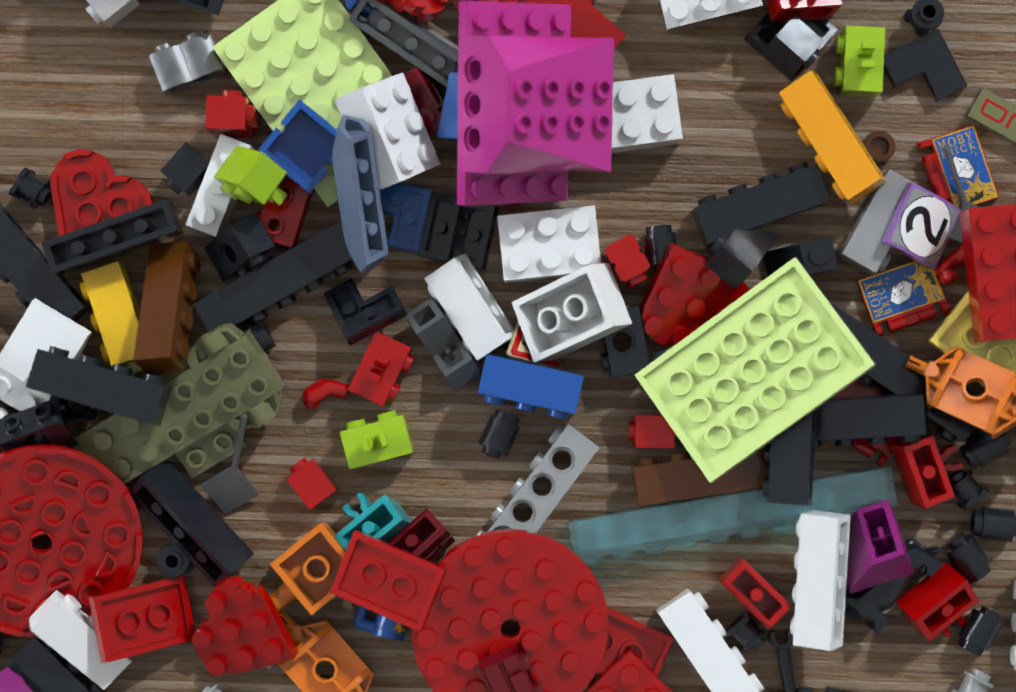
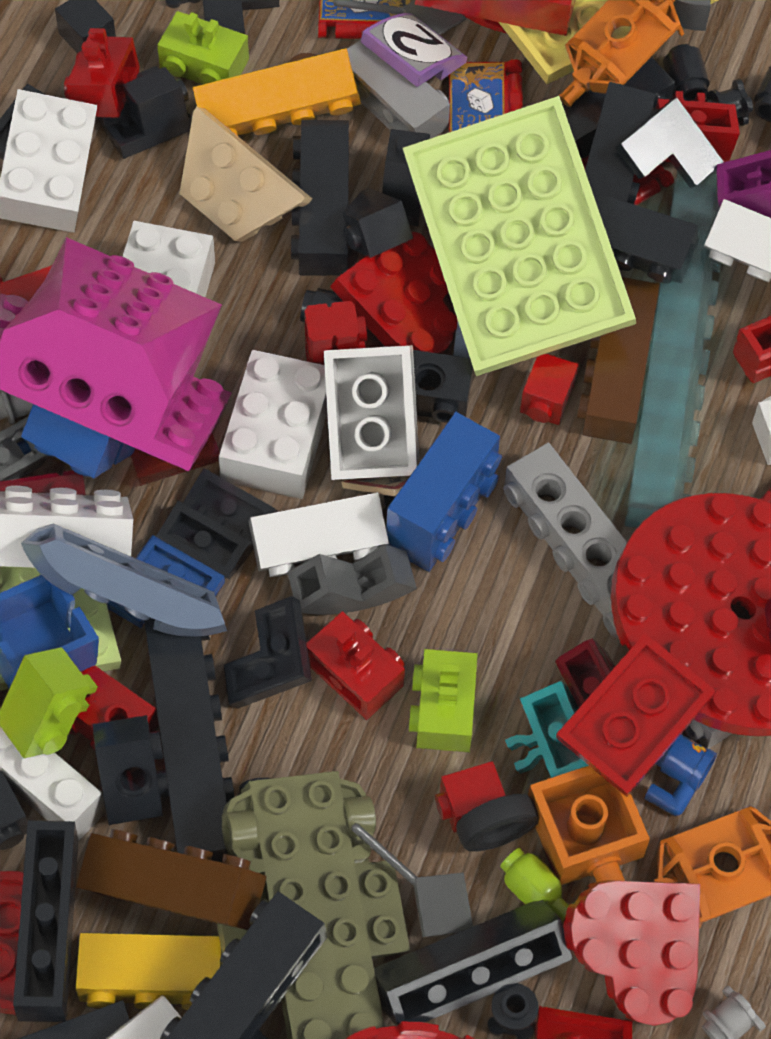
camera: 75 degrees left, 25 degrees down
(266, 546) = (533, 881): none -> lime plant
(293, 507) = (497, 822): none -> black tyre
(321, 389) = (353, 747): red arm -> none
(499, 434) = (489, 557): black brick -> none
(744, 133) = (234, 181): none -> tan wing
(895, 457) = (674, 136): none -> tile
(946, 269) = (464, 39): red arm -> none

